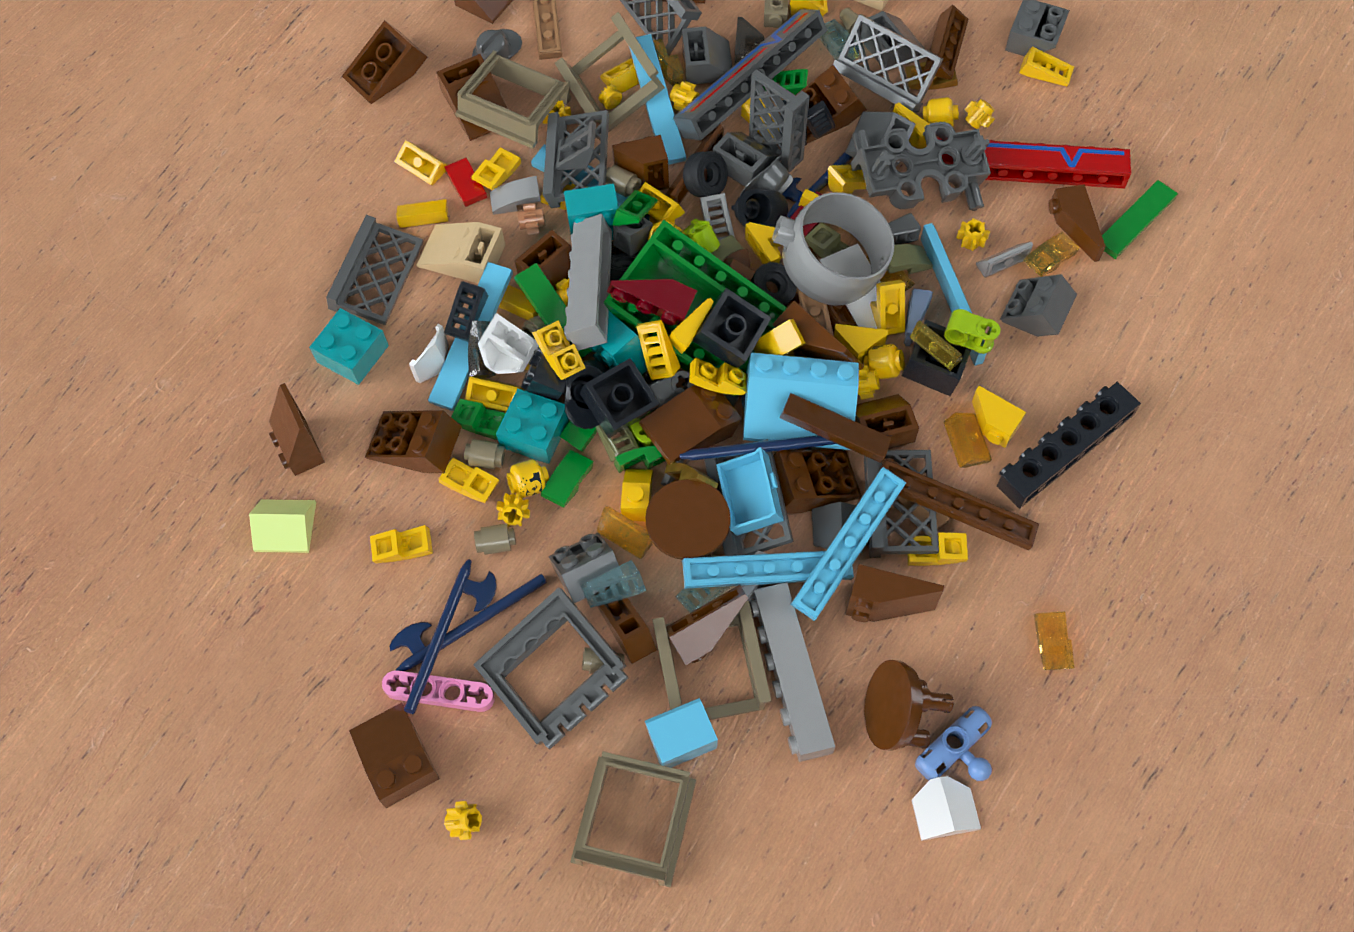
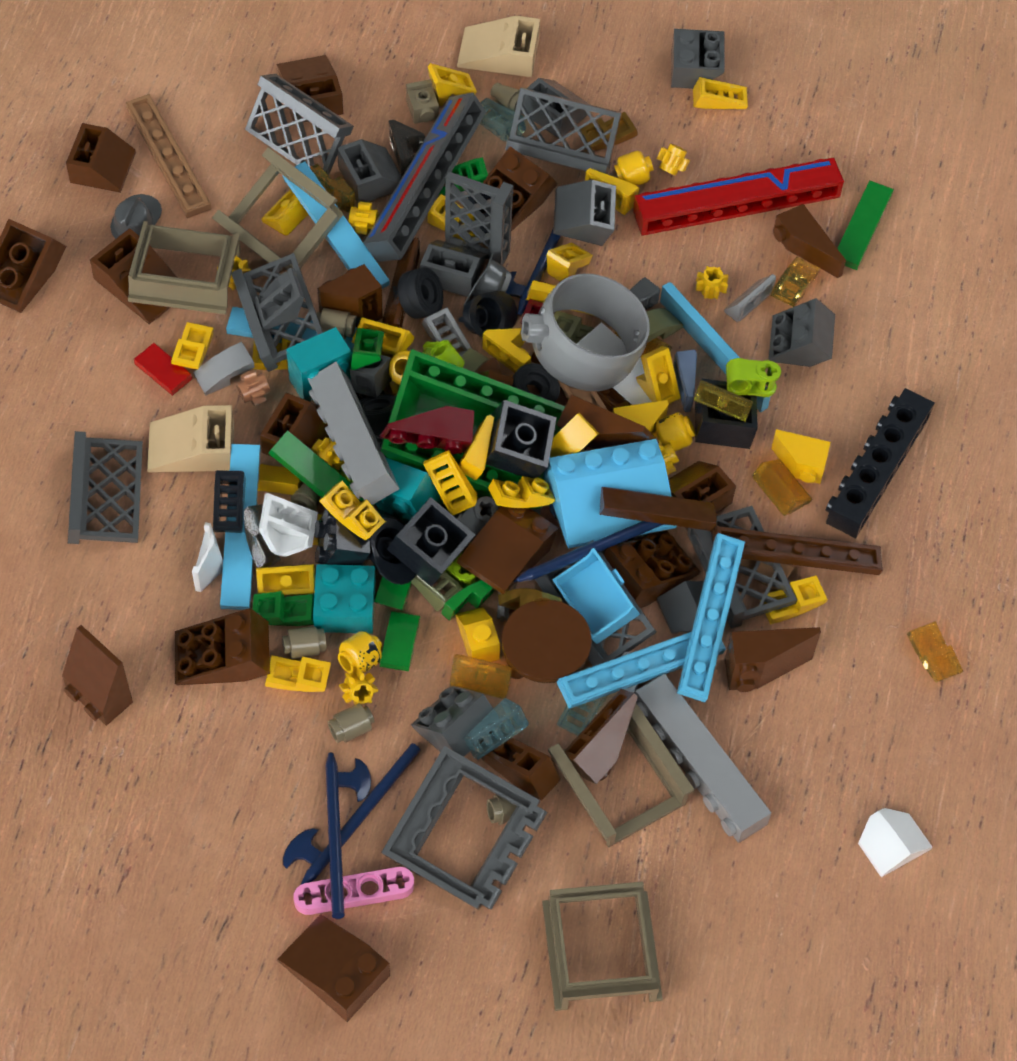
camera: 25 degrees left, 5 degrees down
(282, 525) = (118, 779): yellowish green slope -> none
(349, 346) = (112, 574): teal brick -> none
(400, 546) = (250, 762): yellow slope -> none
(420, 162) = (104, 362): yellow slope -> none
(422, 213) = (129, 414): yellow slope -> none
(463, 820) = (434, 1003): yellow gear -> none
(610, 97) = (284, 238): yellow bush -> none
(681, 734) = (621, 848): medium azure slope -> none
(819, 120) = (521, 206): black slope -> none
(896, 706) = (815, 755): reddish brown piece -> none
(948, 41) = (612, 92): reddish brown slope -> none
(966, 172) = (608, 250): dark grey gear -> none
(967, 732) = (888, 762): medium blue piece -> none

